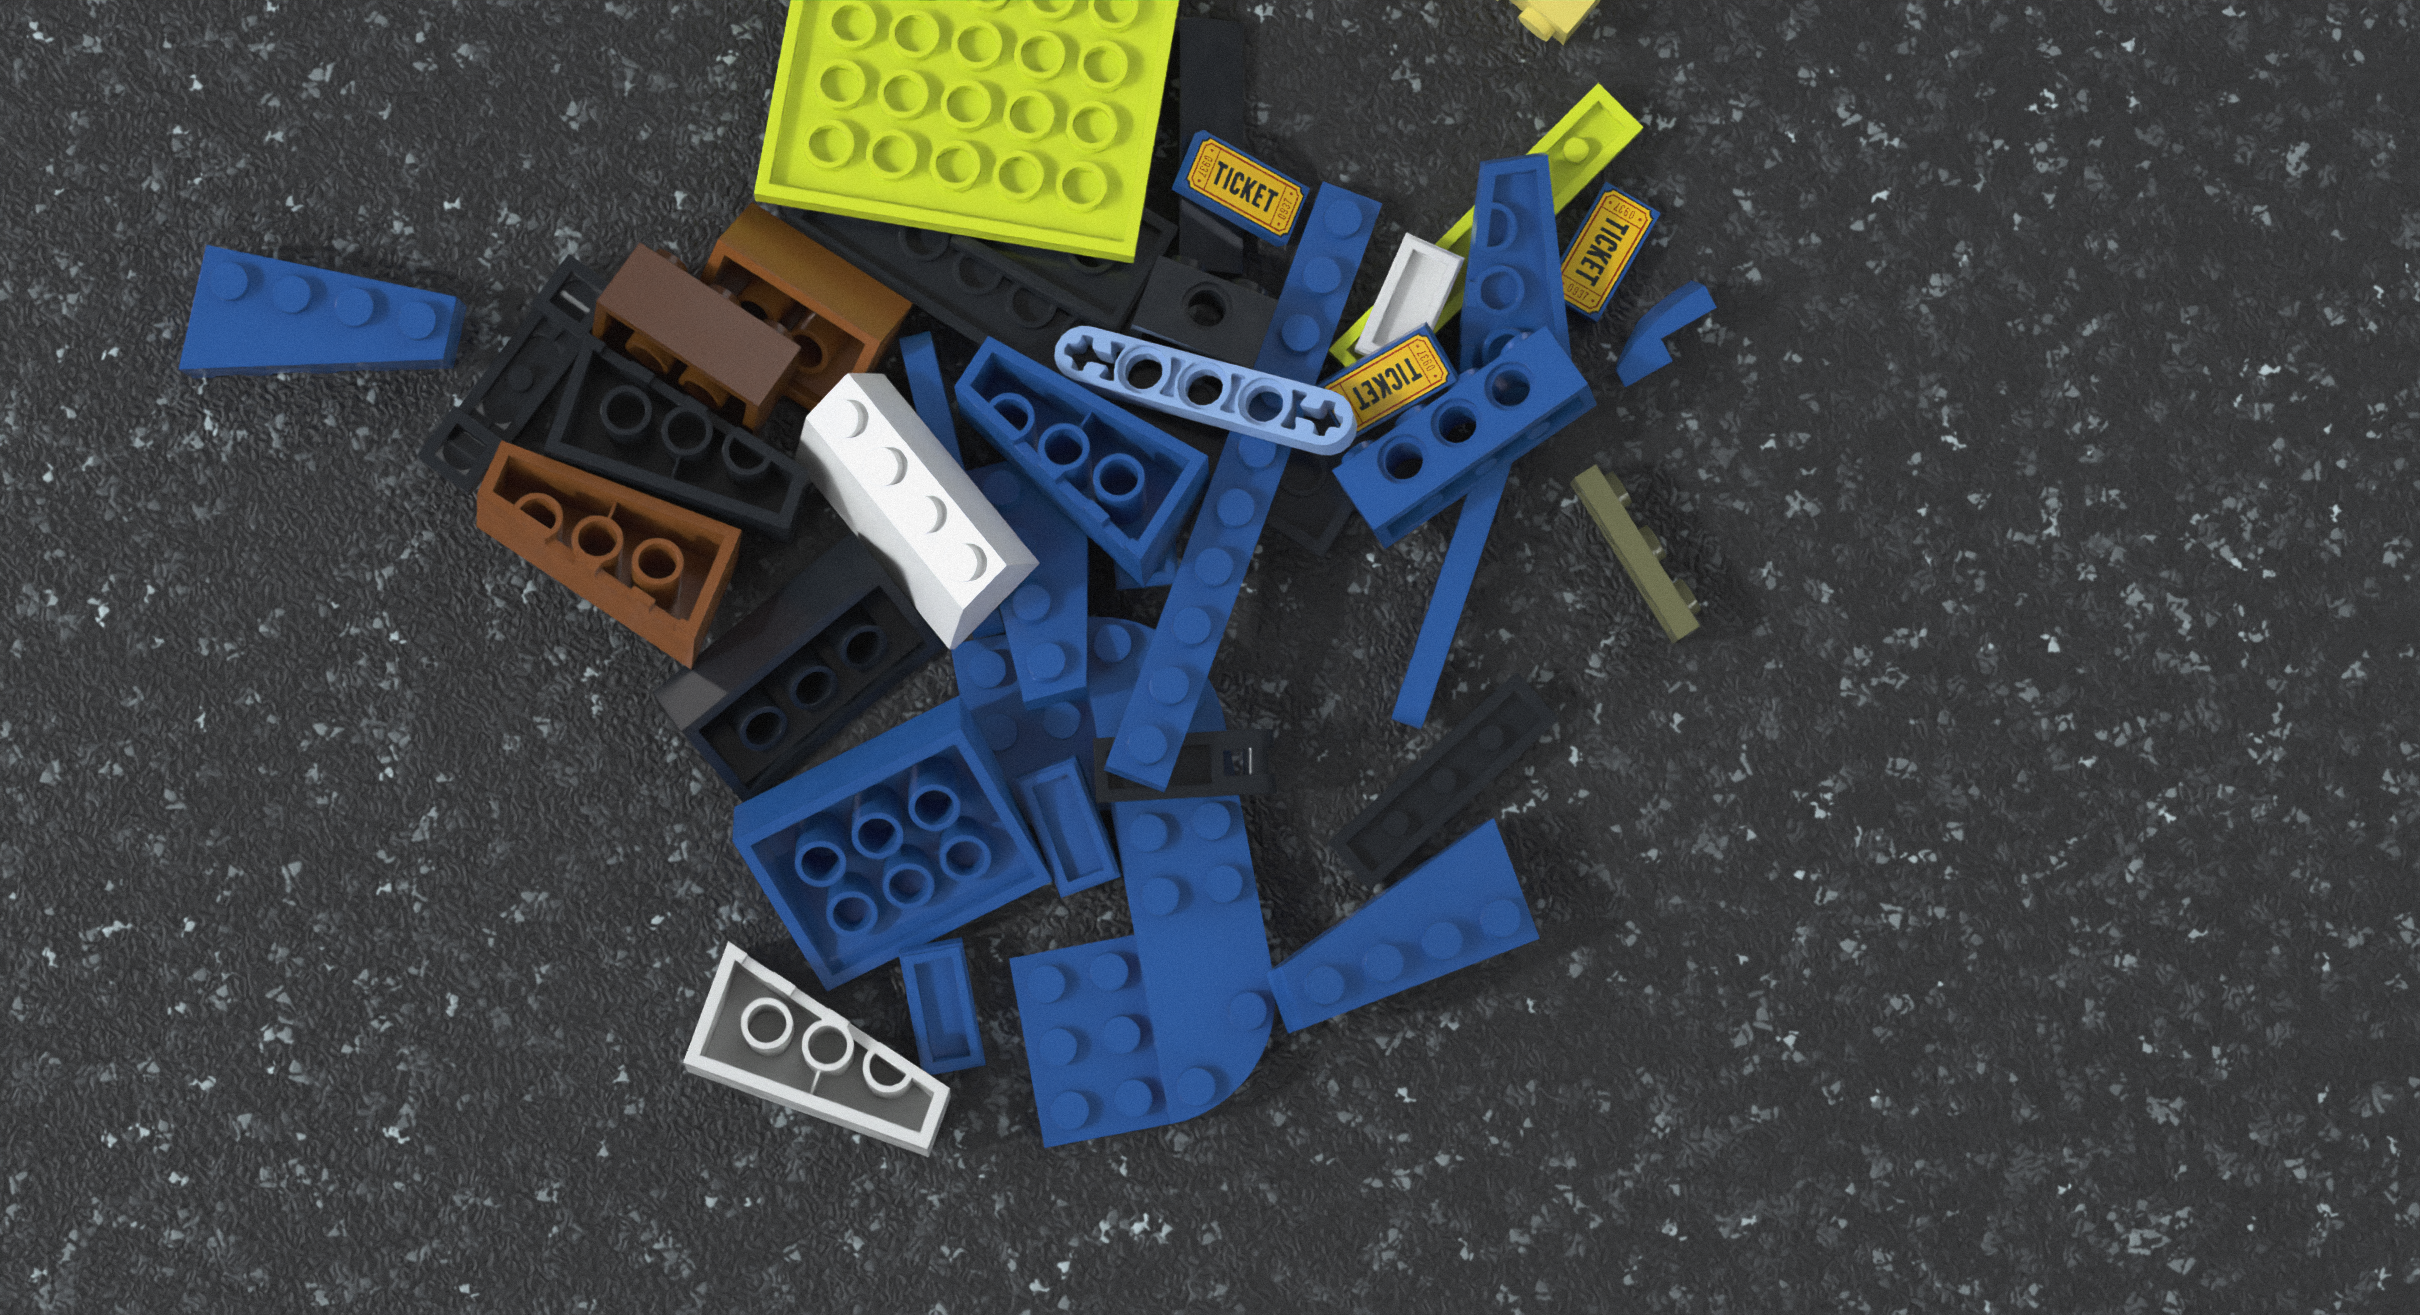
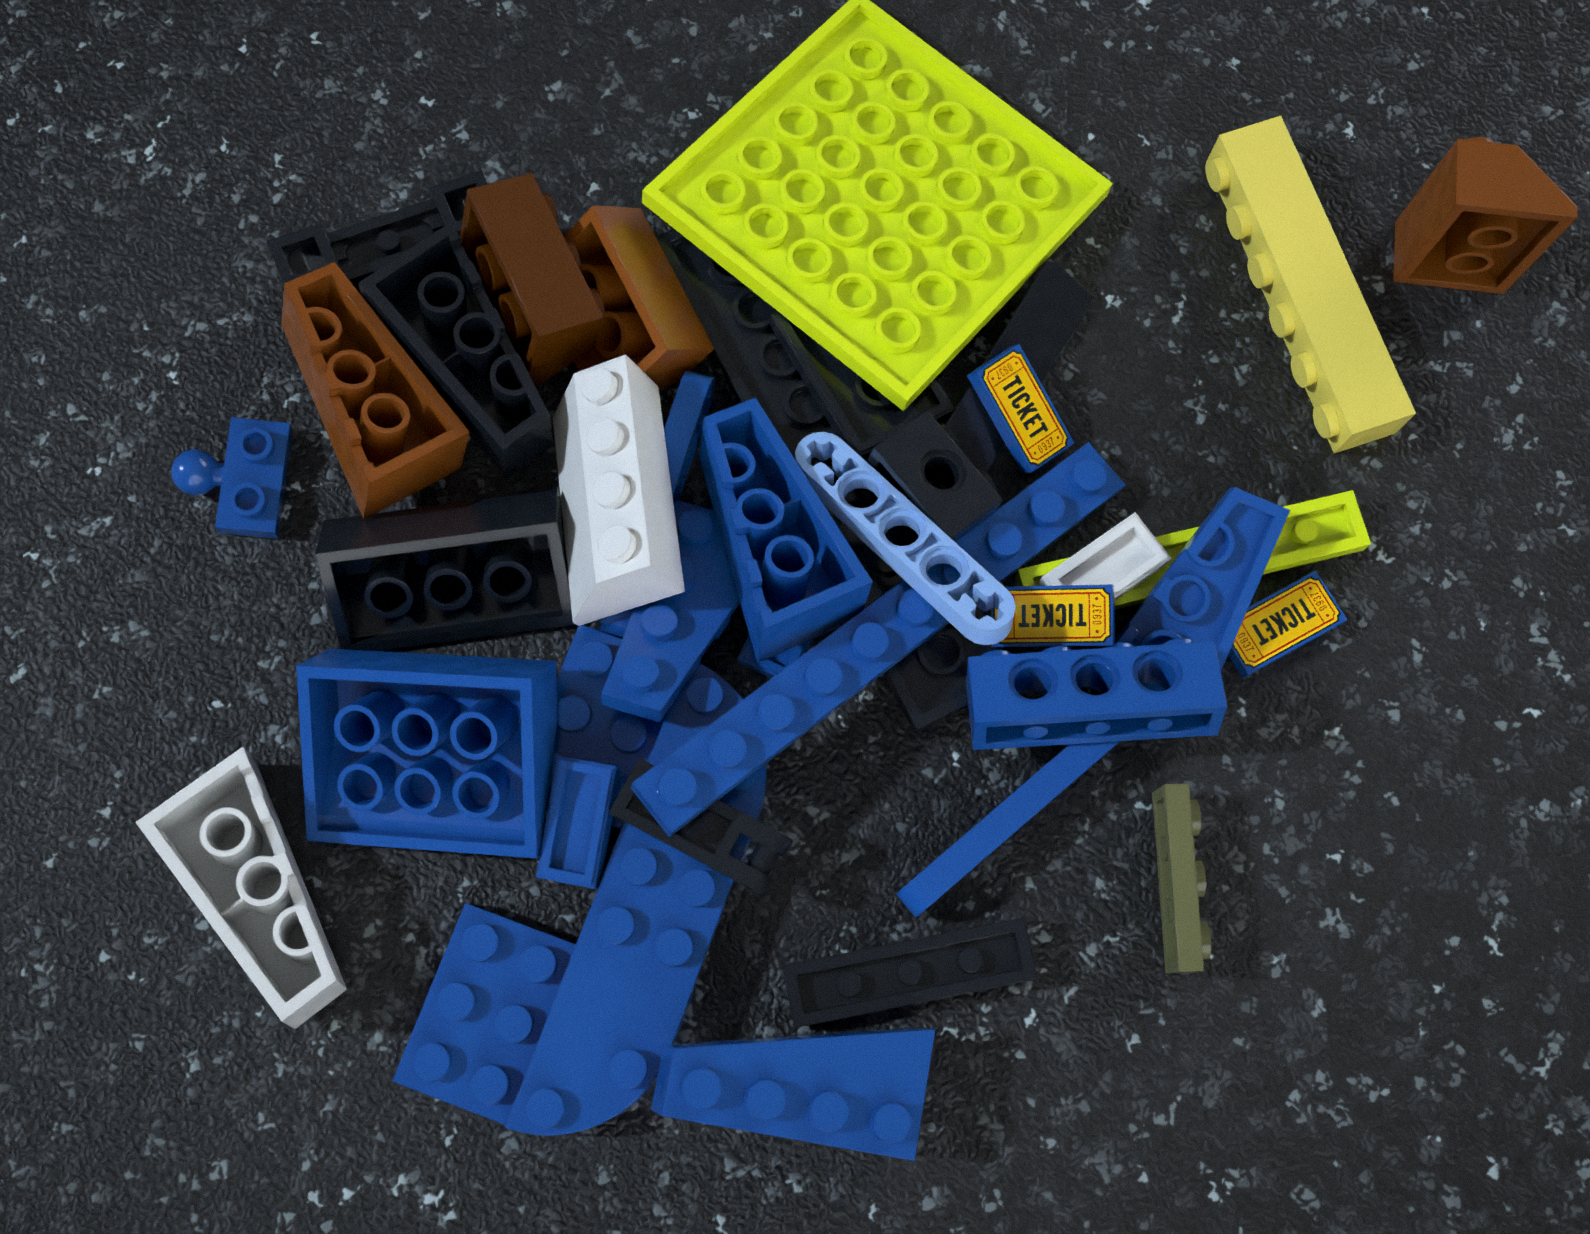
camera: 30 degrees right, 10 degrees down
(296, 318) = (256, 104): blue wedge -> none
(545, 691) = (249, 478): none -> blue plate
(942, 1006) = (385, 909): blue tile -> none
(1644, 348) = (1281, 715): blue slope -> none

